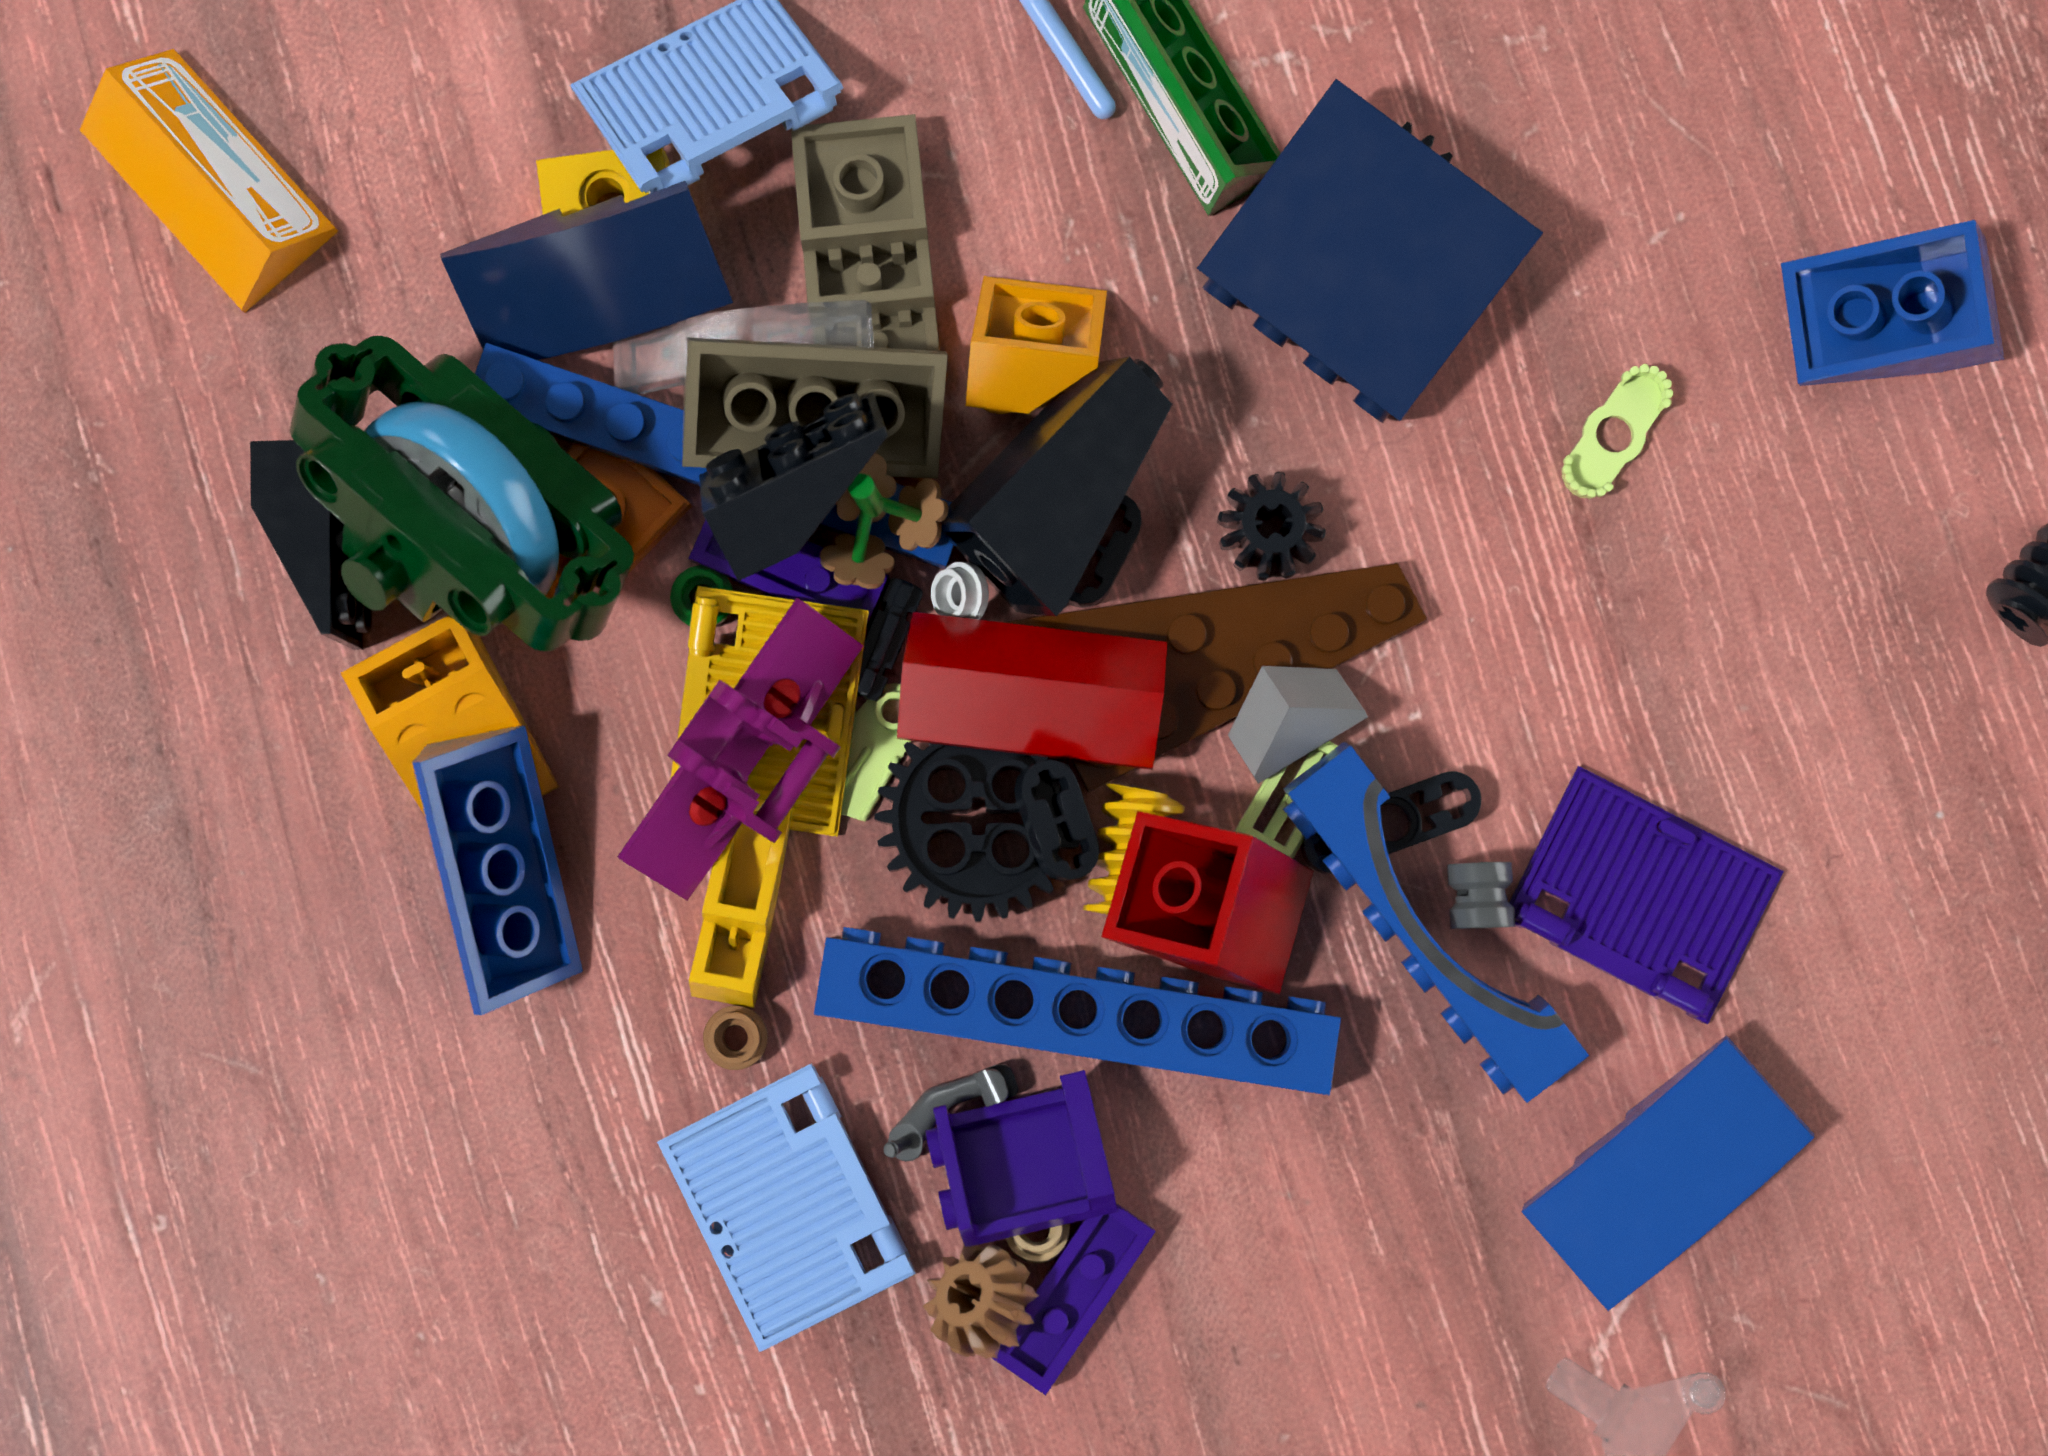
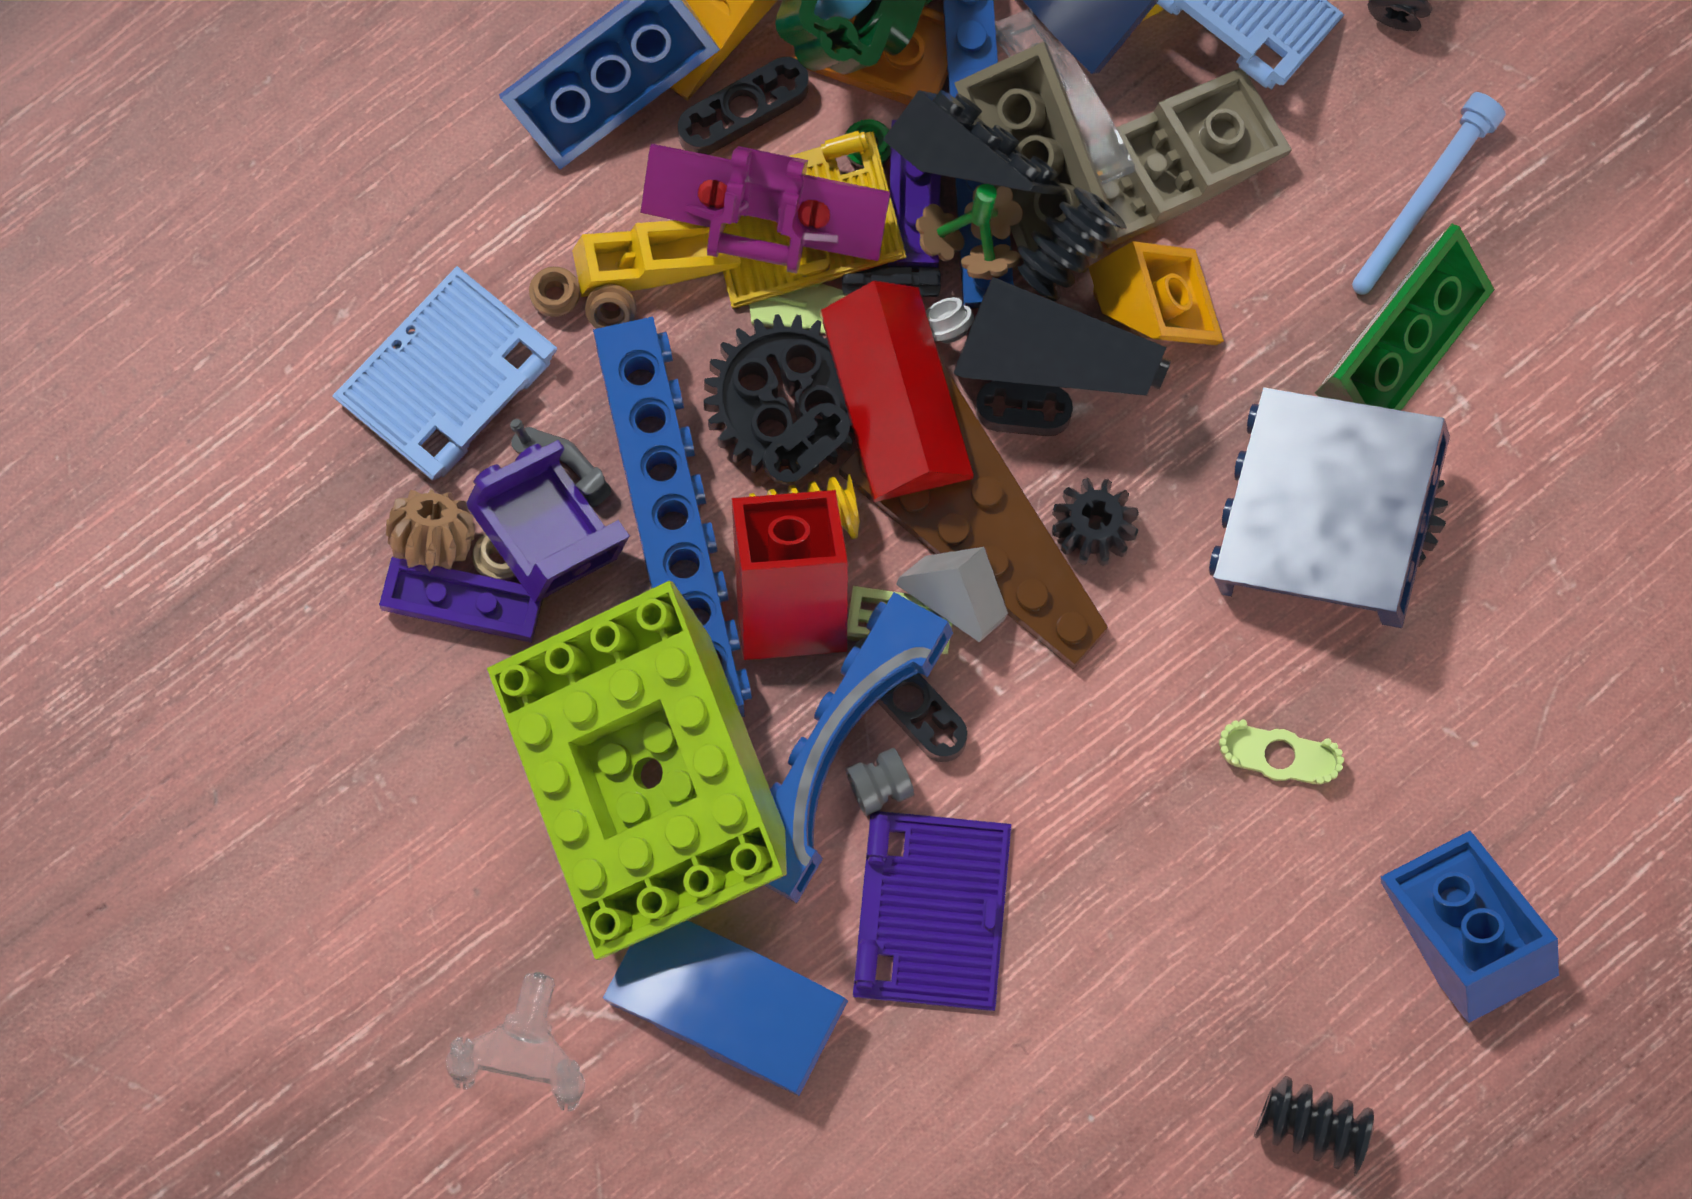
camera: 65 degrees right, 10 degrees down
(587, 773) = (780, 99): none -> black beam
(787, 981) = (599, 316): none -> medium nougat plate
(948, 415) = (1069, 244): none -> black piece
(1467, 1214) = (586, 723): none -> lime slope

